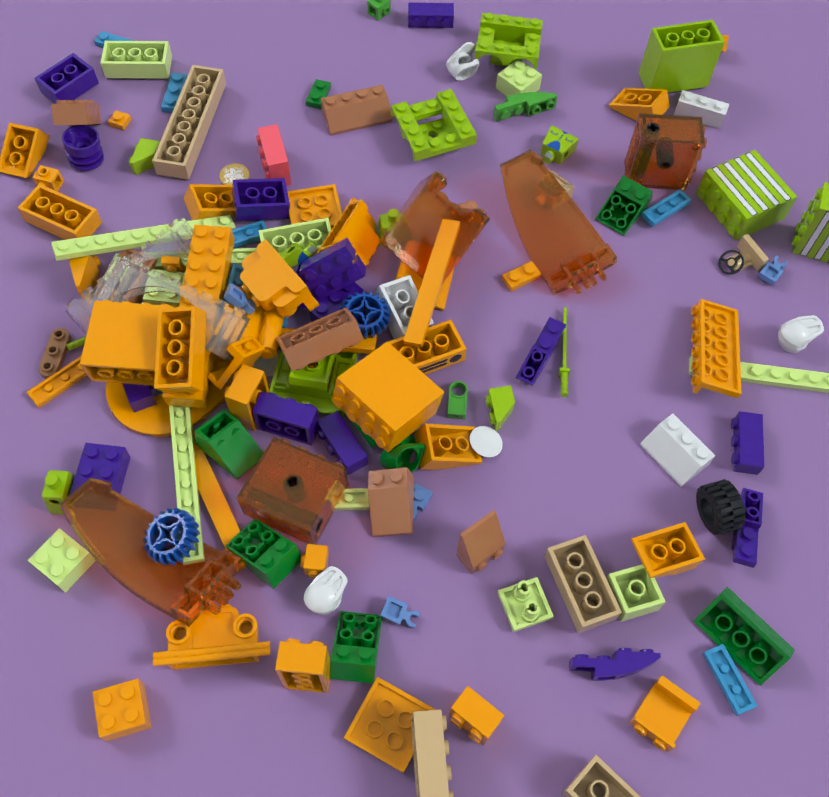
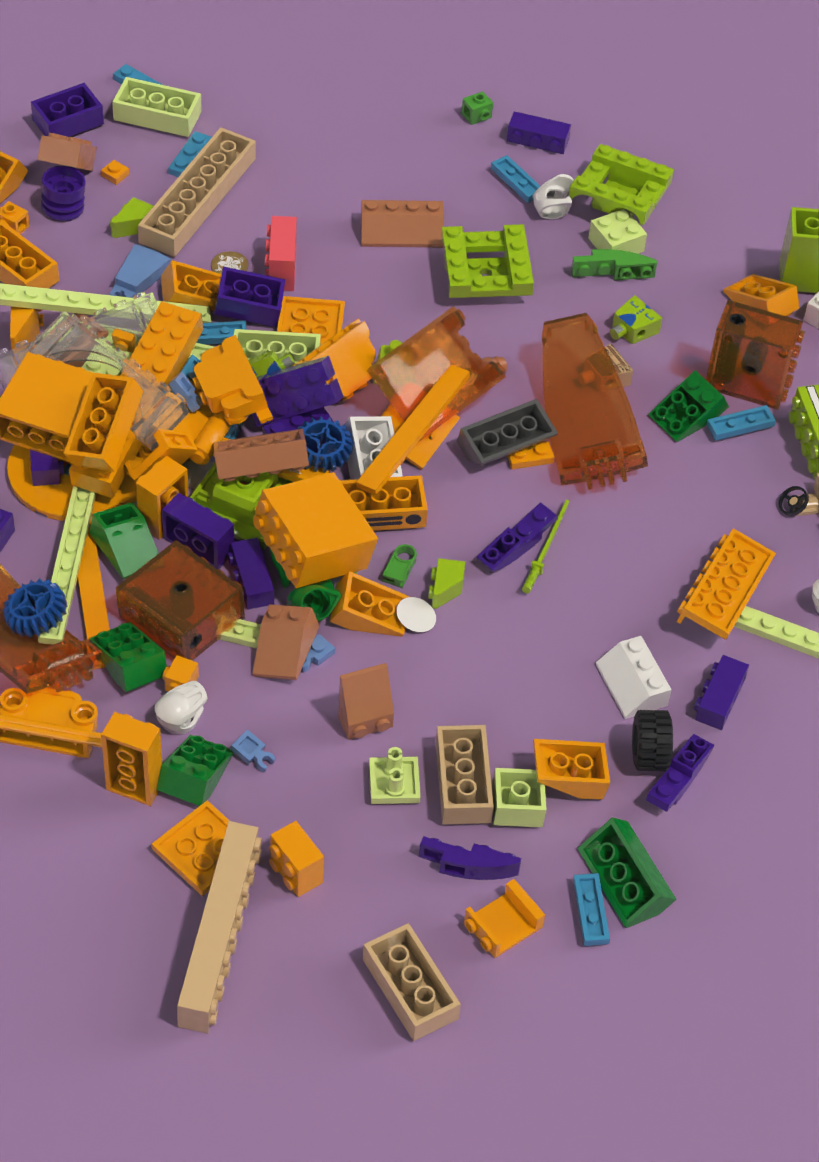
camera: 15 degrees right, 10 degrees down
(164, 199) = (139, 271): none -> medium blue piece
(319, 90) = (366, 190): green plate -> none
(427, 54) = (515, 177): none -> dark azure plate
(500, 265) = (505, 433): none -> dark grey slope

